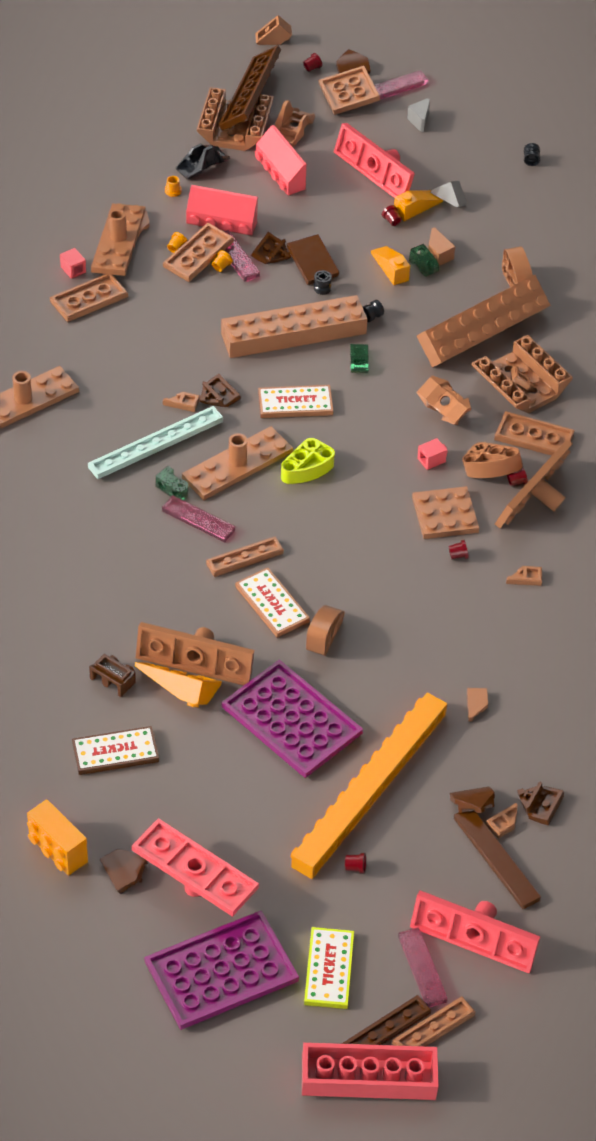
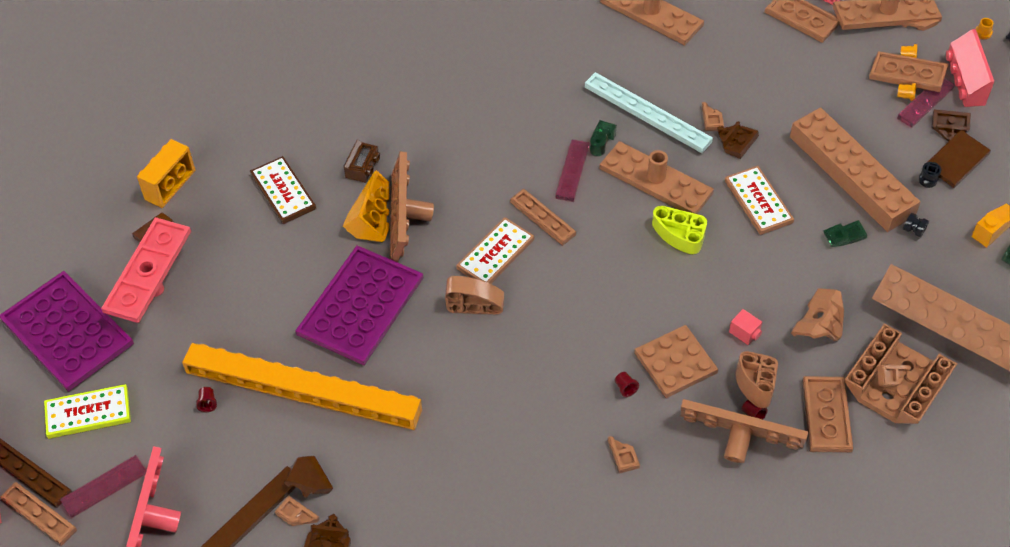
camera: 75 degrees right, 5 degrees up
(476, 701) = (436, 451): nougat tile -> none

